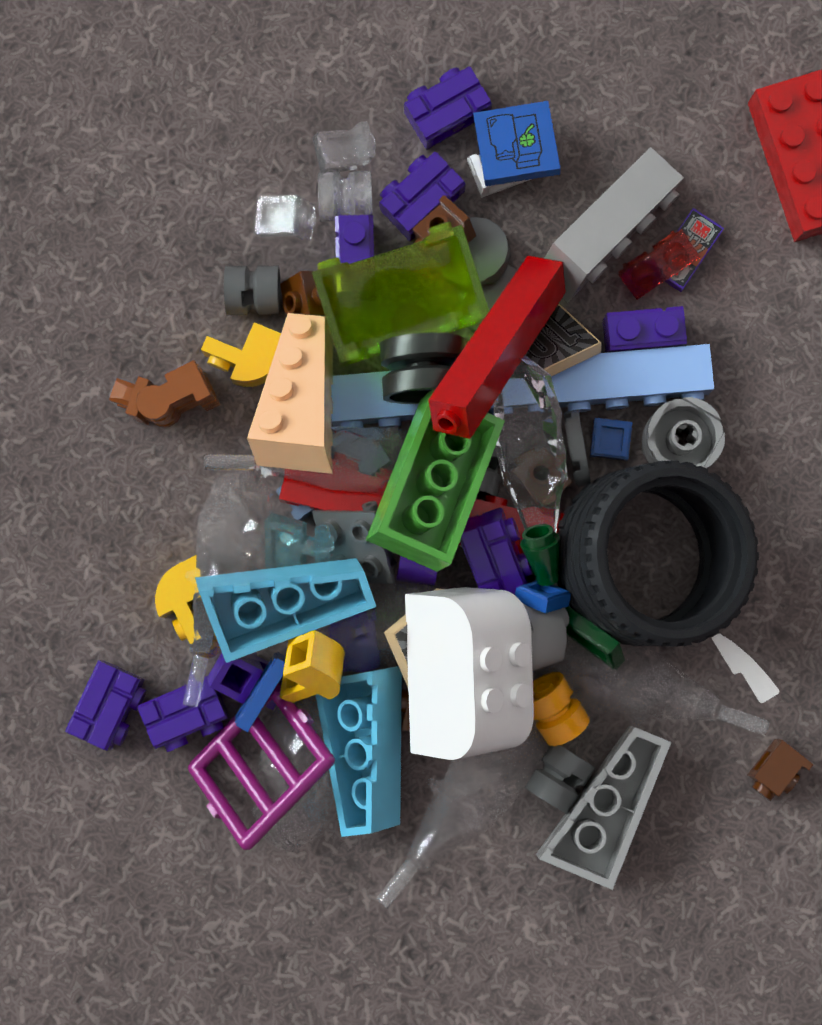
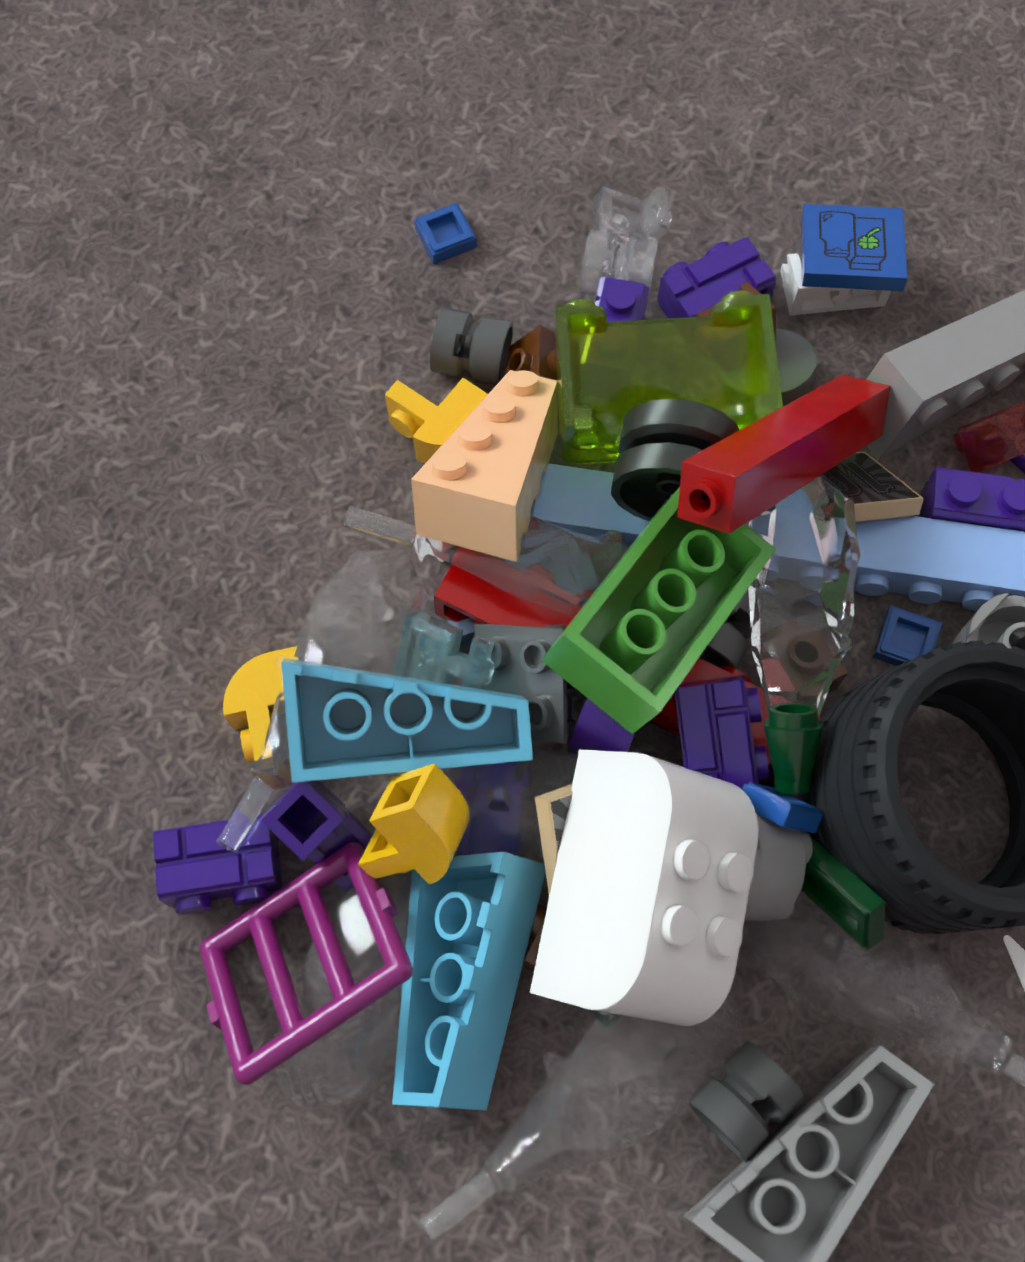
camera: 15 degrees right, 15 degrees down
(106, 705) = (112, 825): dark purple brick -> none
(165, 403) = (322, 442): dark orange hips -> none
(205, 191) = (445, 233): none -> blue tile
(261, 692) = (330, 850): blue tile -> none
(285, 217) = (536, 275): clear bracket -> none
(446, 106) = (768, 198): dark purple brick -> none
(556, 713) = (762, 1001): light orange wheel -> none
(577, 448) = (864, 631): dark grey tile -> none

